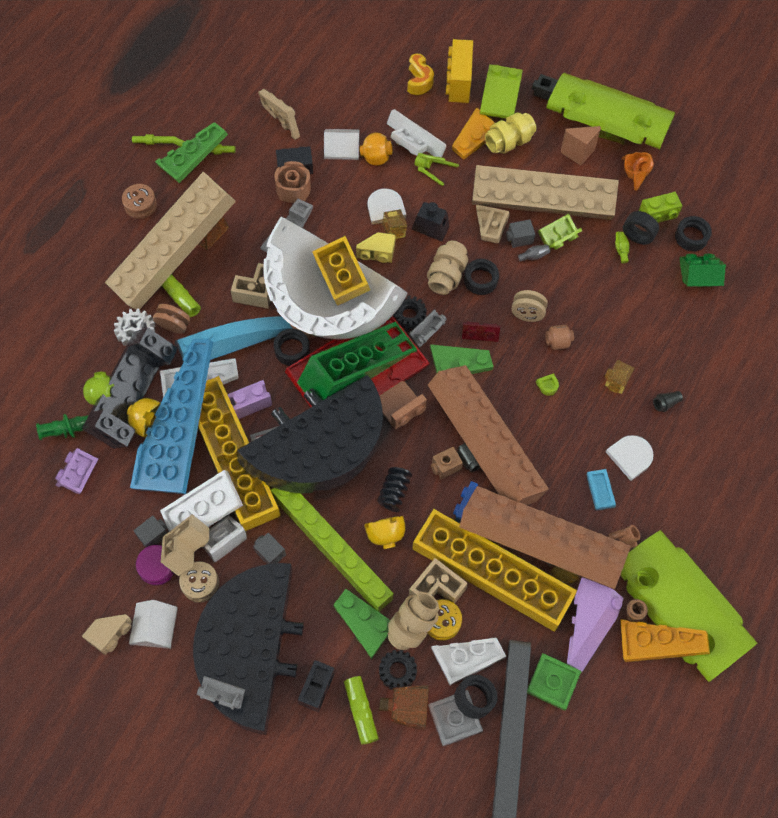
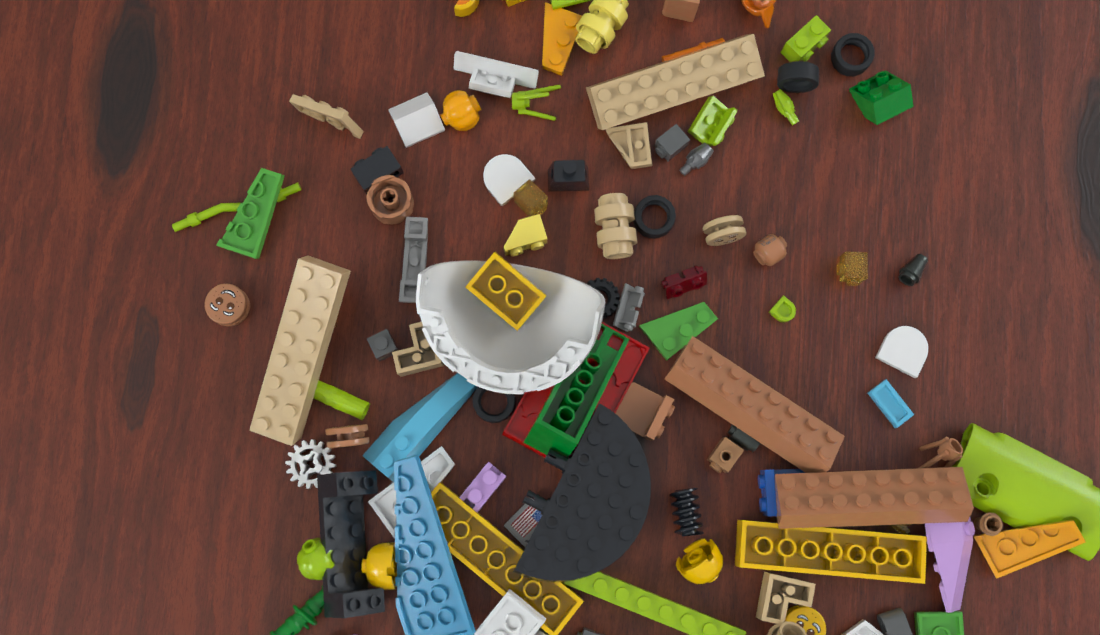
camera: 30 degrees left, 15 degrees up
(229, 270) = (382, 345): none -> dark grey brick

